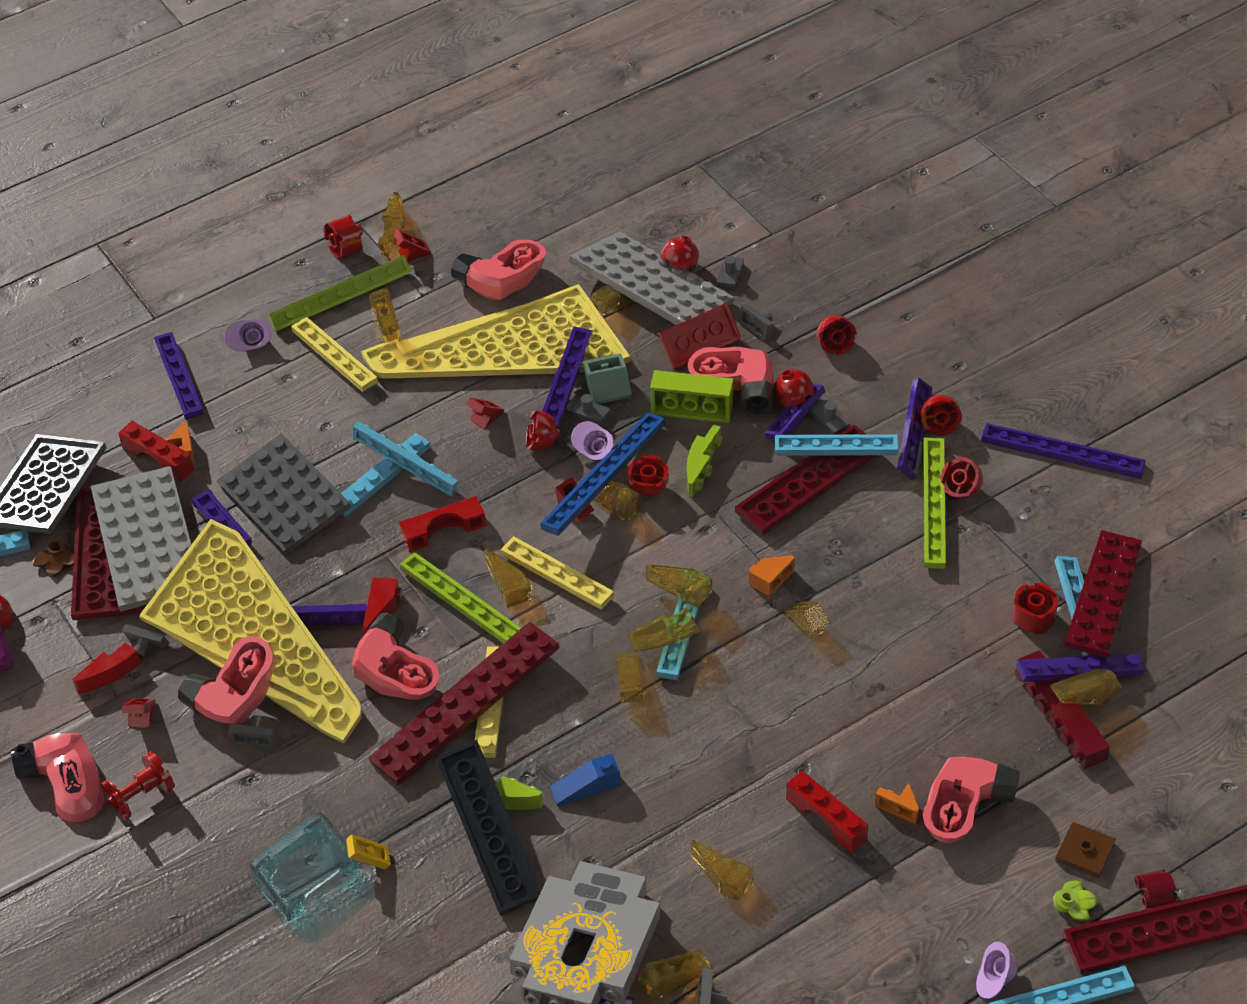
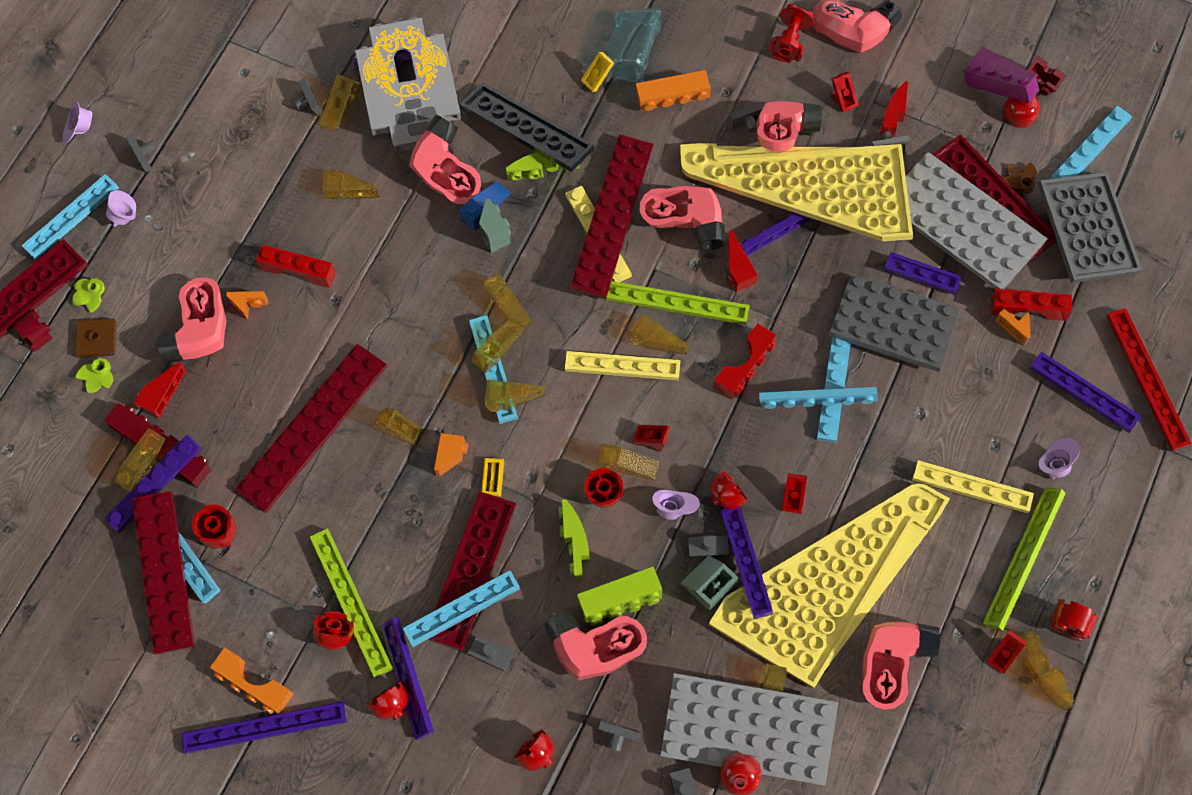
camera: 150 degrees right, 20 degrees up
(117, 362) = (1149, 380): none -> red plate
(305, 794) = (673, 90): none -> orange brick
(384, 316) = (947, 531): clear yellow slope -> none
(594, 737) = (494, 227): none -> sand green slope
(602, 474) = (642, 471): blue plate -> none
(609, 829) = (441, 168): none -> coral piece
(708, 329) = (658, 678): red tile -> none
(738, 552) = (492, 481): none -> yellow tile
(793, 387) = (536, 660): red cylinder -> none
(793, 415) = (522, 639): dark purple plate -> none
(891, 660) = (311, 428): none -> dark red plate
(1040, 756) = (158, 392): none -> red slope
(1045, 464) = (231, 668): none -> orange arch
(1103, 810) = (94, 377): none -> lime plate

